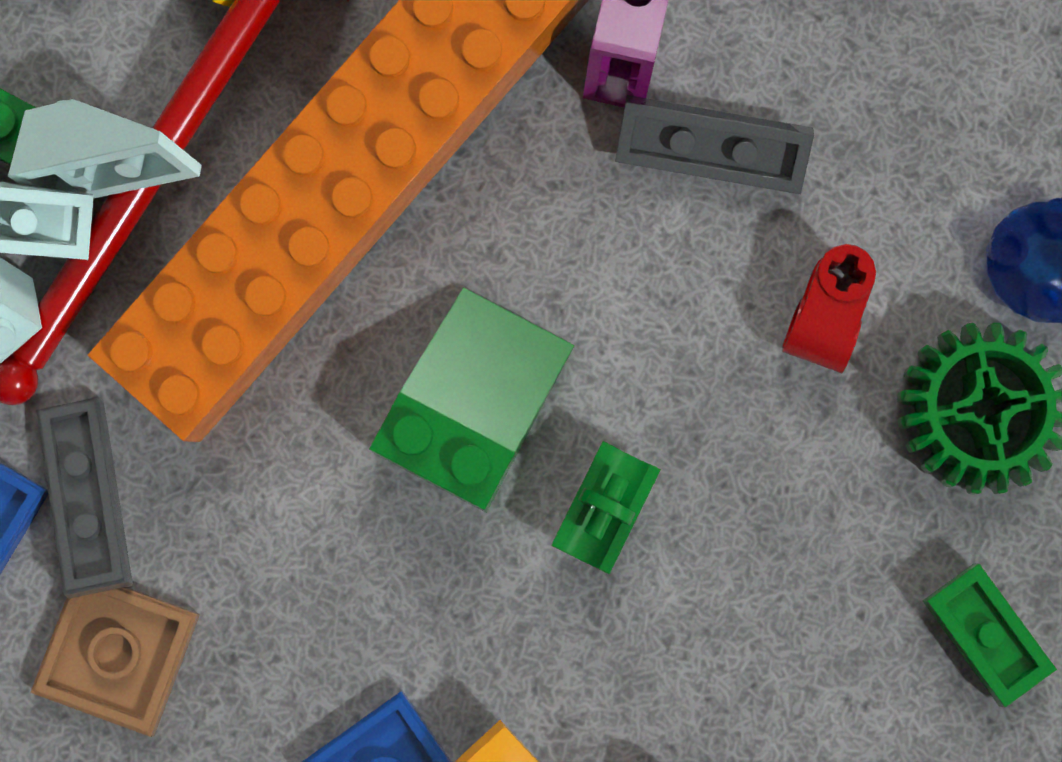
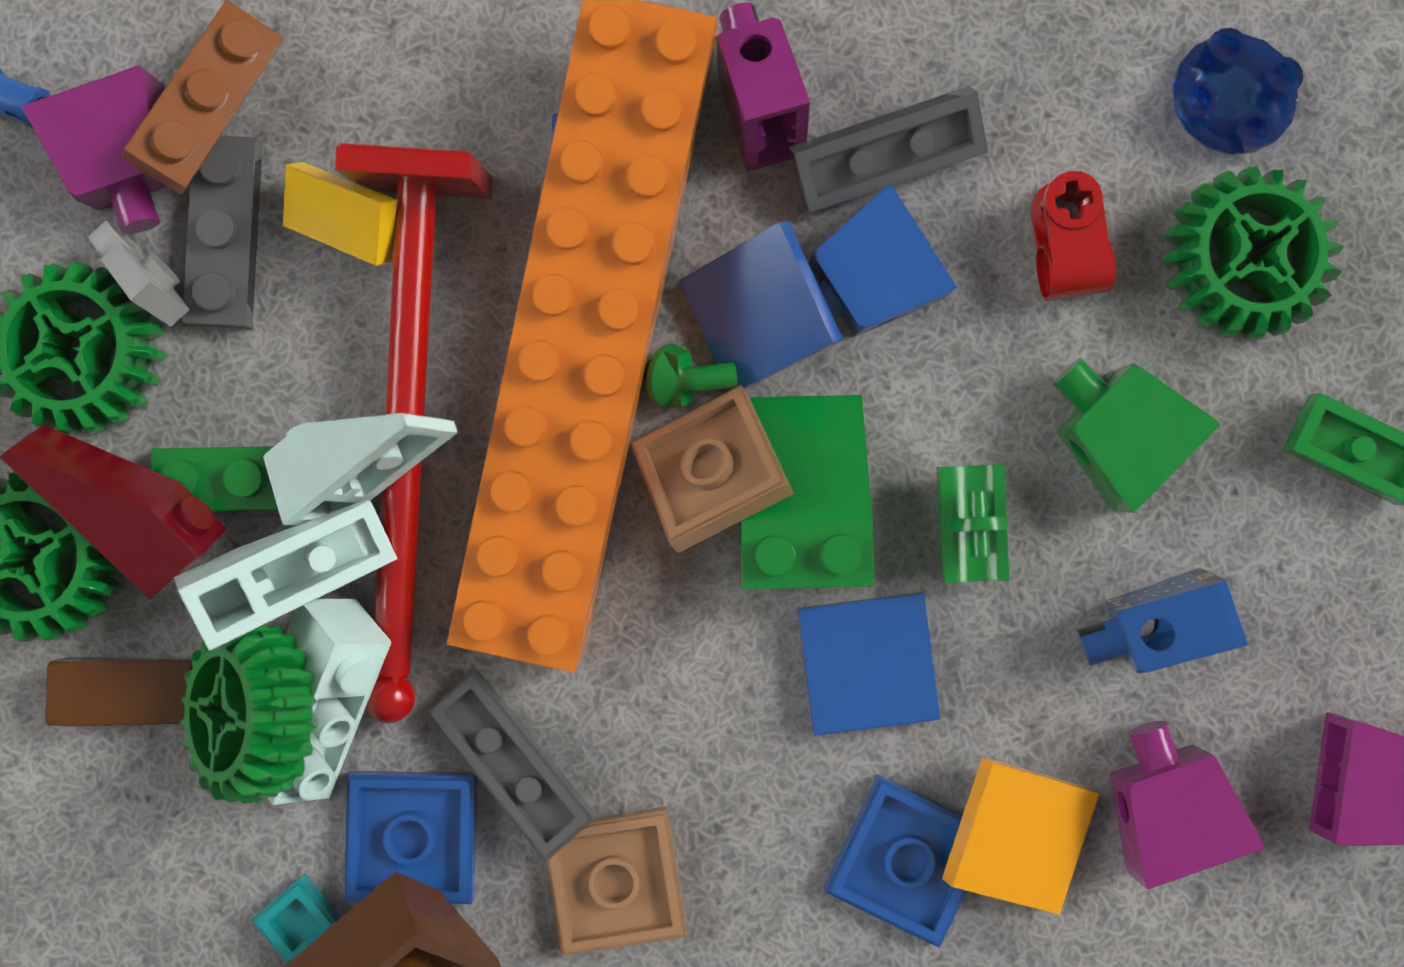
camera: 35 degrees left, 5 degrees up
(402, 332) = (710, 469): none -> medium nougat tile
(415, 240) = (674, 380): none -> green plate
(447, 584) = (868, 663): none -> blue tile
(523, 219) = (761, 306): none -> blue tile
(641, 240) = (879, 266): none -> blue torso
(752, 694) = (1193, 623): none -> blue torso
(790, 502) = (1128, 431): none -> green torso

